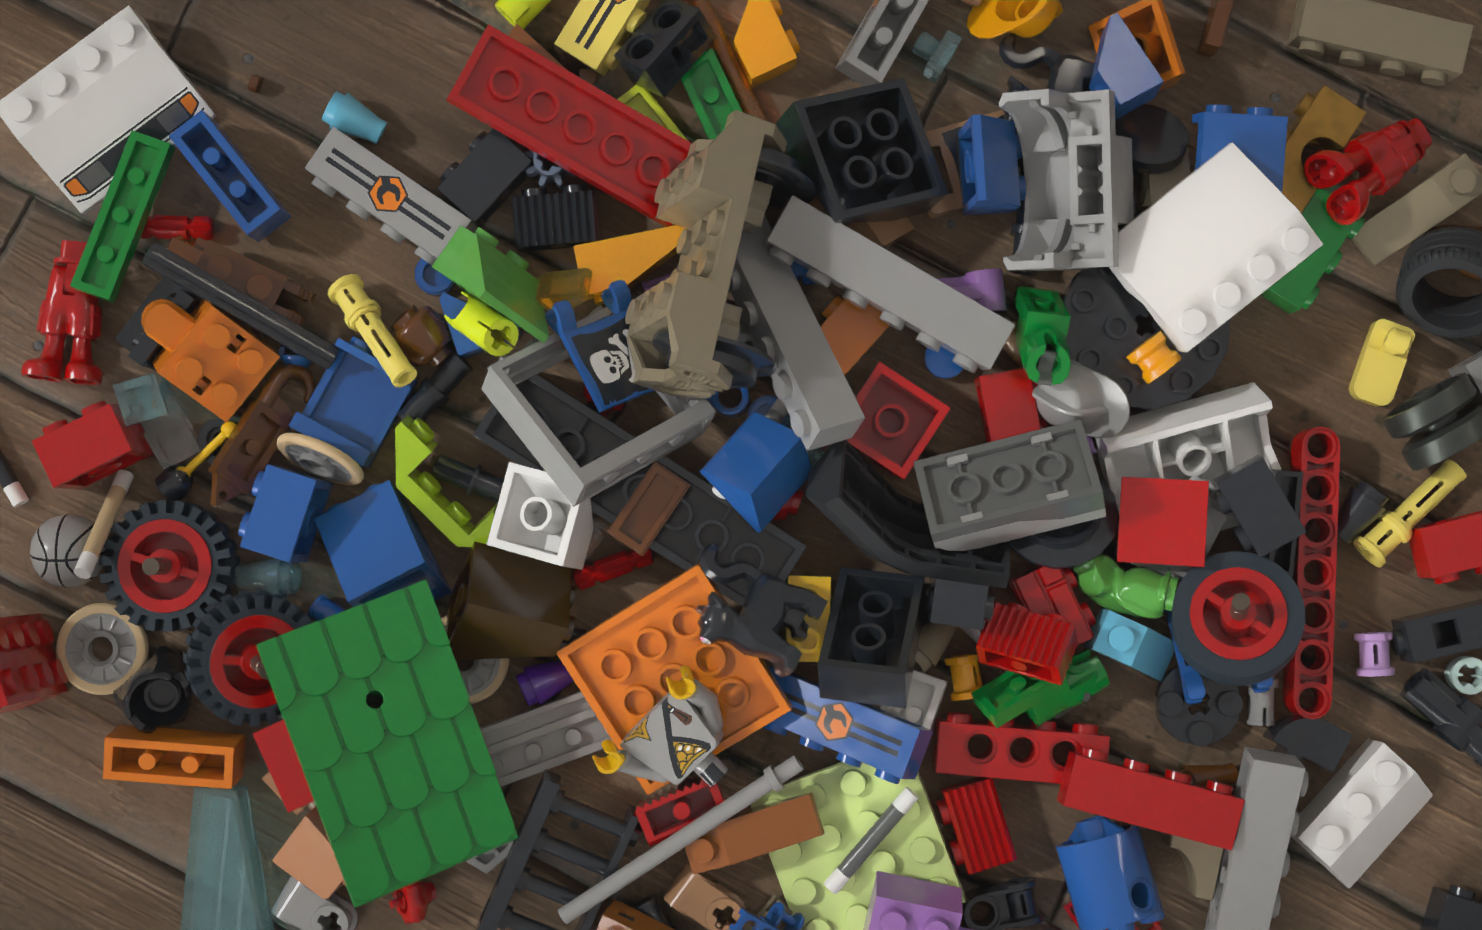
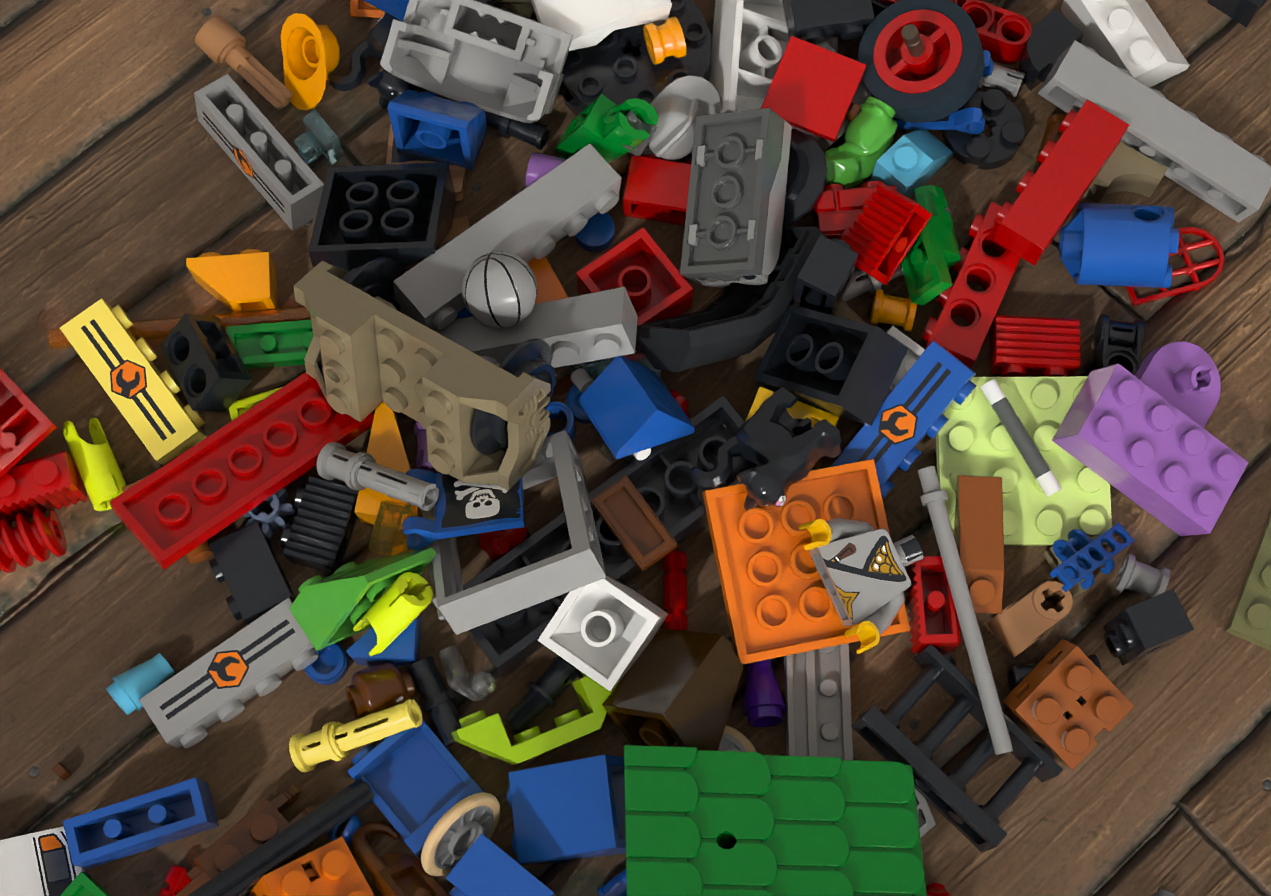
camera: 70 degrees left, 15 degrees down
(461, 406) = (462, 681): none -> clear arm
(606, 242) = (362, 472): none -> light grey pin
(817, 300) = (499, 289): none -> light grey piece
(1159, 568) = (852, 112): none -> reddish brown piece

